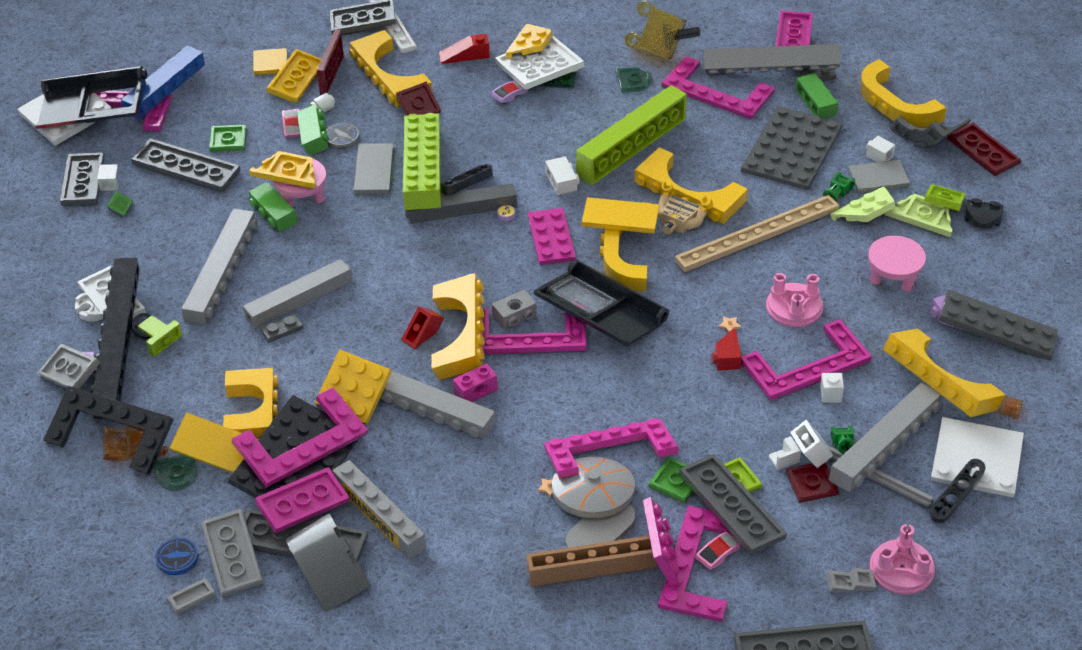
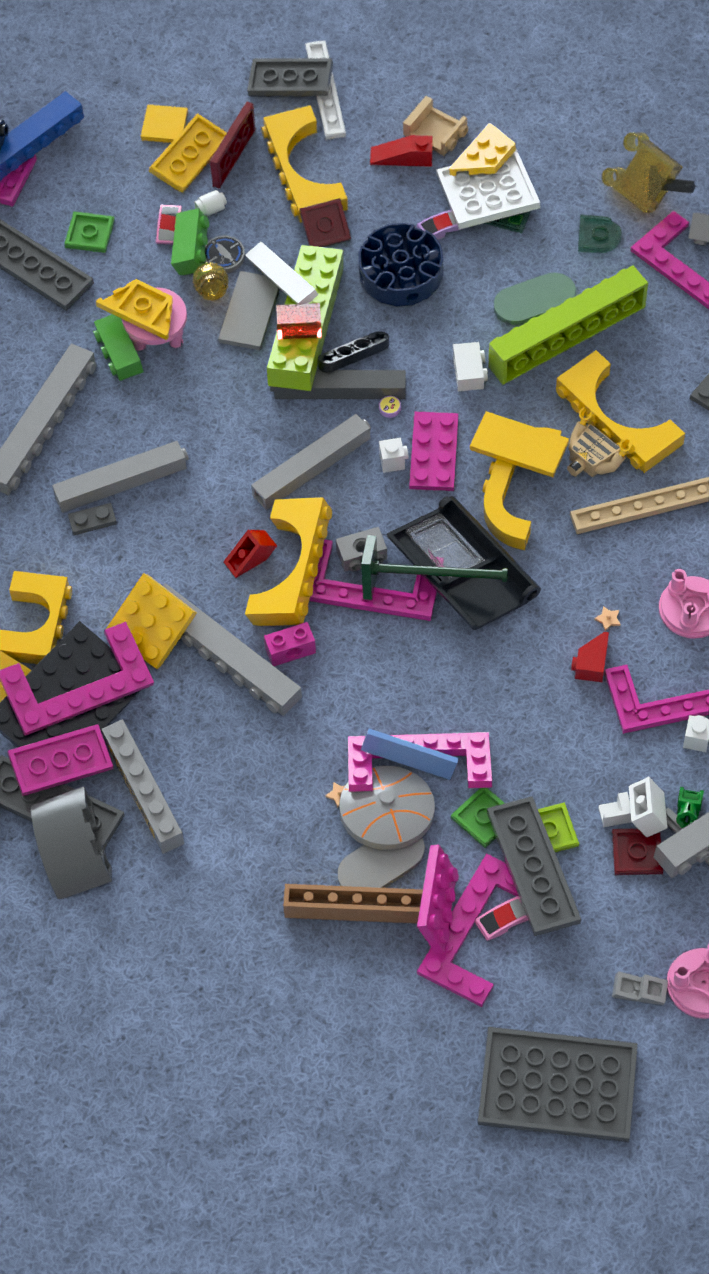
camera: 15 degrees right, 15 degrees up
(337, 151) = (210, 281): none -> clear yellow piece
(395, 134) = (281, 274): none -> white tile
(420, 155) = (298, 321): none -> clear red brick
(454, 257) = (311, 461): none -> light grey brick
(486, 118) = (400, 264): none -> dark blue brick
(495, 33) = (432, 122): none -> tan panel
(519, 242) = (392, 455): none -> white brick
(530, 314) = (371, 568): none -> dark green tile
(594, 124) = (533, 297): none -> sand green tile
(601, 442) = (409, 754): none -> medium blue tile

